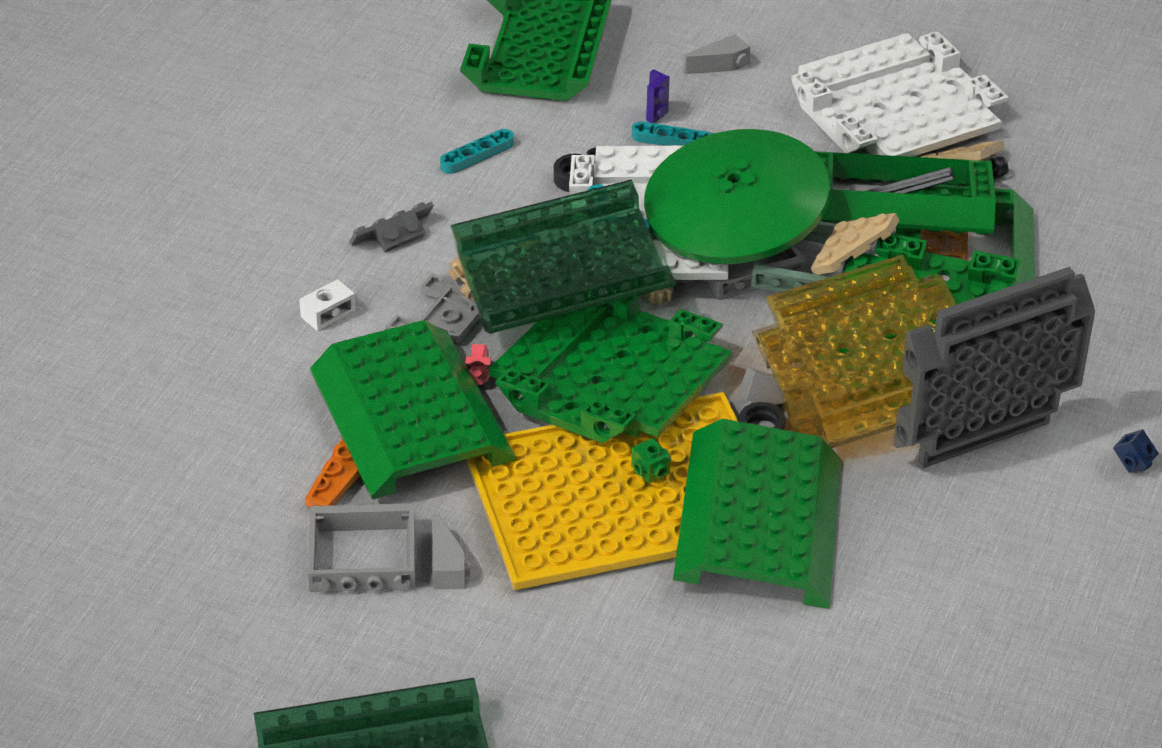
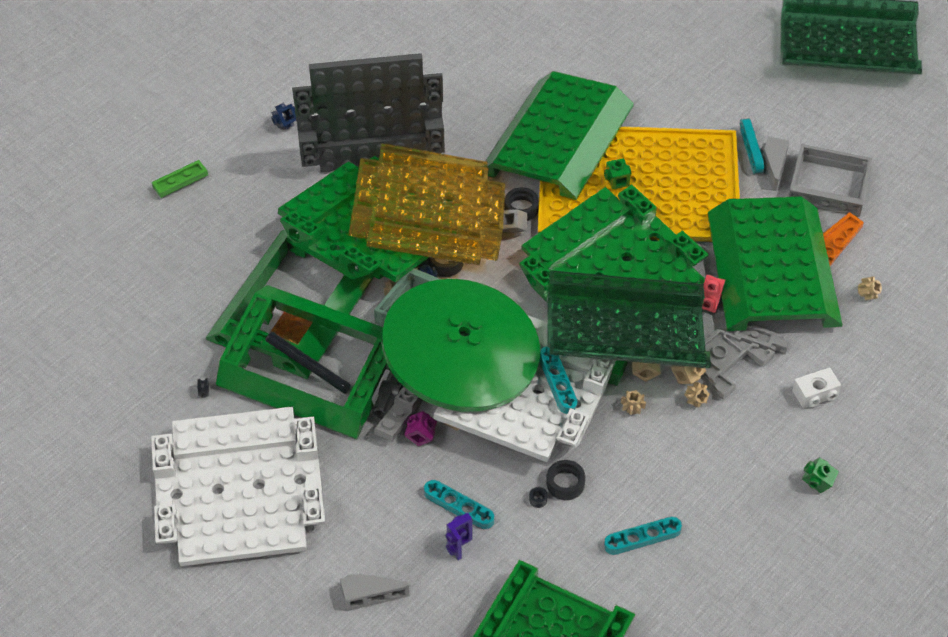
camera: 160 degrees left, 10 degrees up
(283, 419) = (869, 288): none -> tan gear
(306, 222) = (819, 475): none -> green brick
(397, 230) = (742, 458): dark grey bracket -> none
(486, 572) = (751, 146): none -> teal beam
(852, 239) = (390, 277): tan plate -> none
(979, 151) = (222, 396): tan plate -> none

